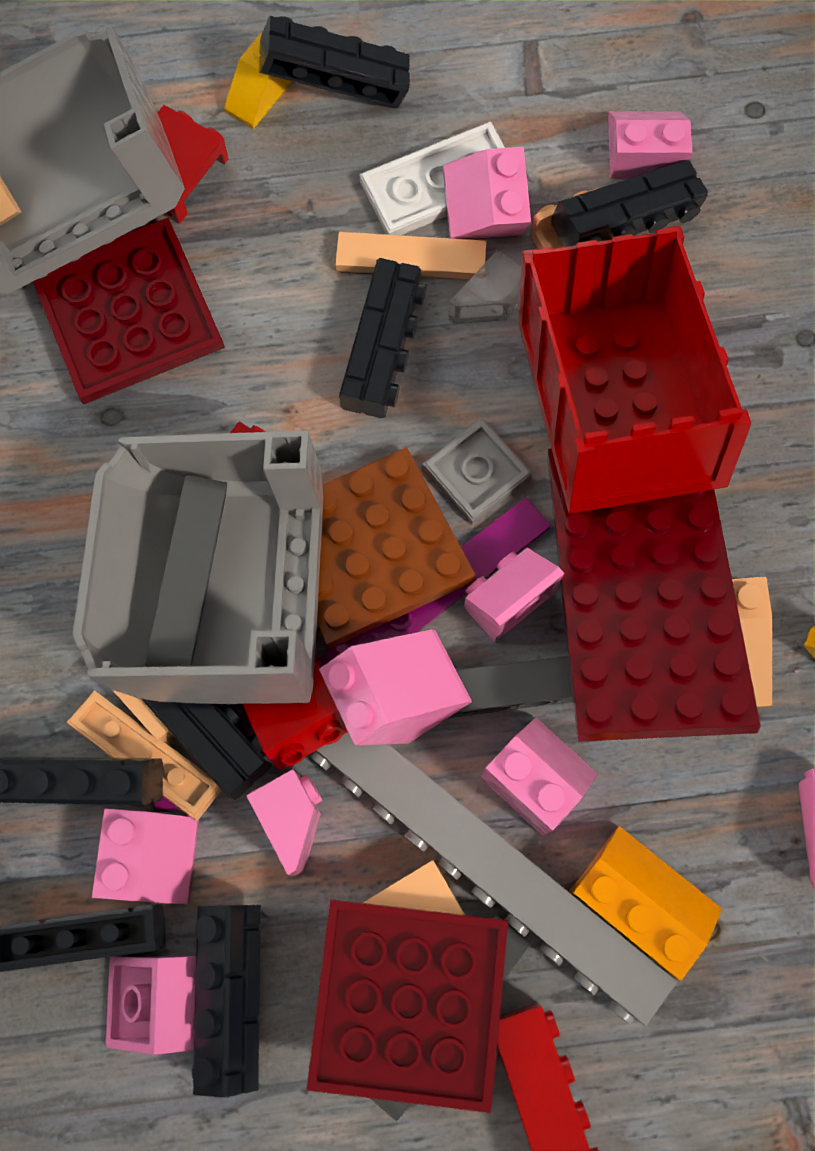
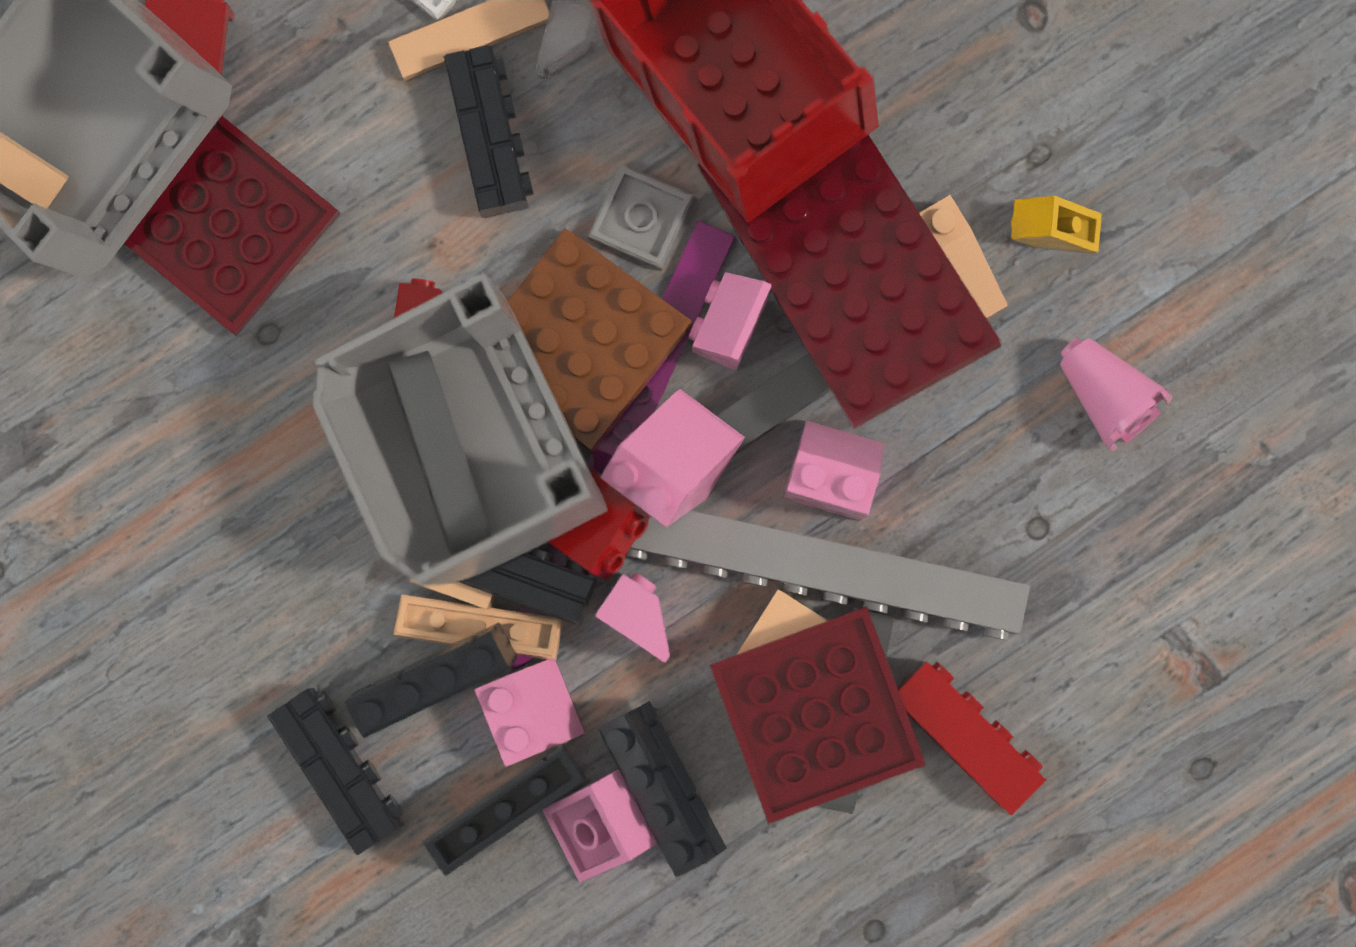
camera: 25 degrees left, 10 degrees up
(647, 903) = (976, 532): light orange slope -> none

